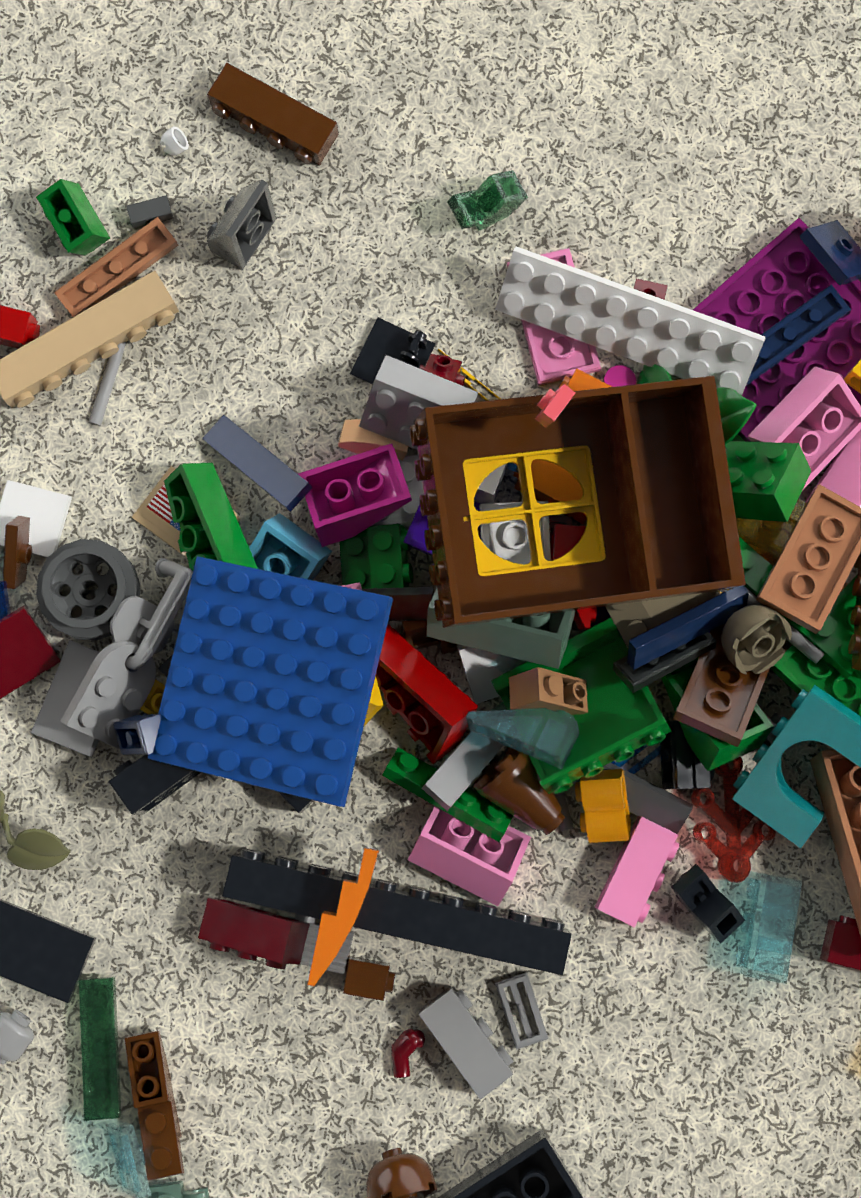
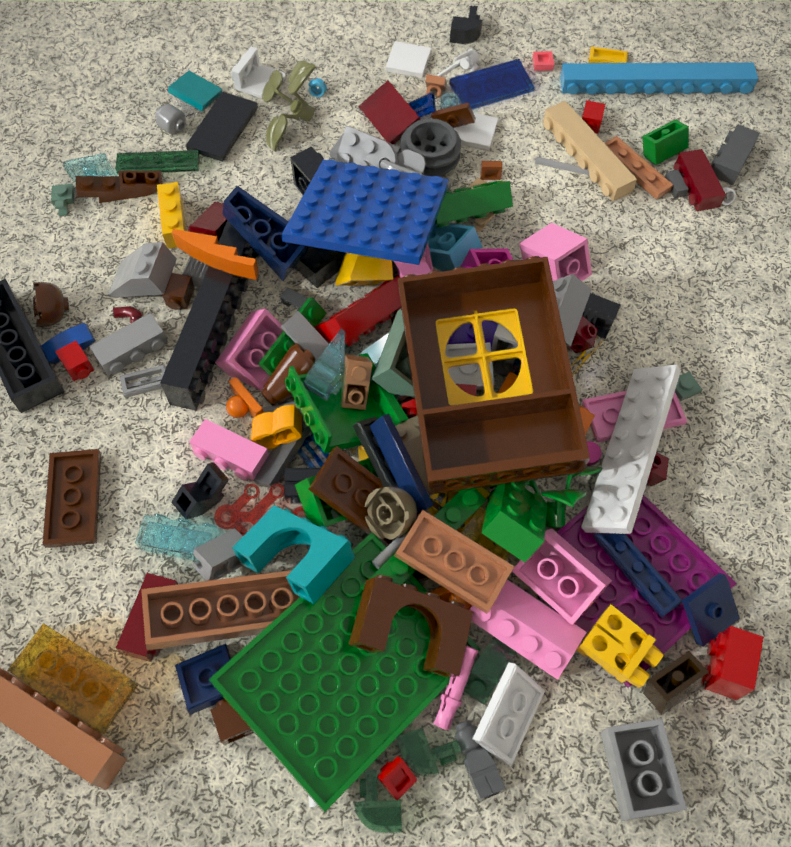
camera: 90 degrees right, 20 degrees down
(93, 116) = (734, 153): none -> dark grey brick
(124, 495) = (491, 170): none -> dark orange plate
(137, 734) = (339, 155): dark blue slope -> none
(146, 176) = (702, 183): none -> dark red brick
(219, 1006) = (171, 211): none -> yellow brick
(243, 224) = (673, 220): dark grey slope -> none
(257, 463) = (513, 230): dark blue tile -> none
(272, 114) = (753, 246): reddish brown brick -> none
(297, 844) = (263, 231): none -> dark blue wedge
(298, 403) = (565, 251): none -> bright pink slope
(342, 1038) = (144, 272): none -> light grey slope
(378, 796) = (292, 297): none -> dark grey piece
(461, 1137) = (80, 333): none -> blue slope
(490, 203) = (710, 367): clear green brick -> none
(497, 1120) = (75, 361): none -> red brick
(508, 239) = (687, 386): none -> sand green plate
(553, 404) = (555, 332): coral plate -> none
(560, 860) = (242, 402): none -> orange tile
(713, 1085) = (72, 498): none -> reddish brown plate
(797, 866) = (217, 556): none -> light grey hinge

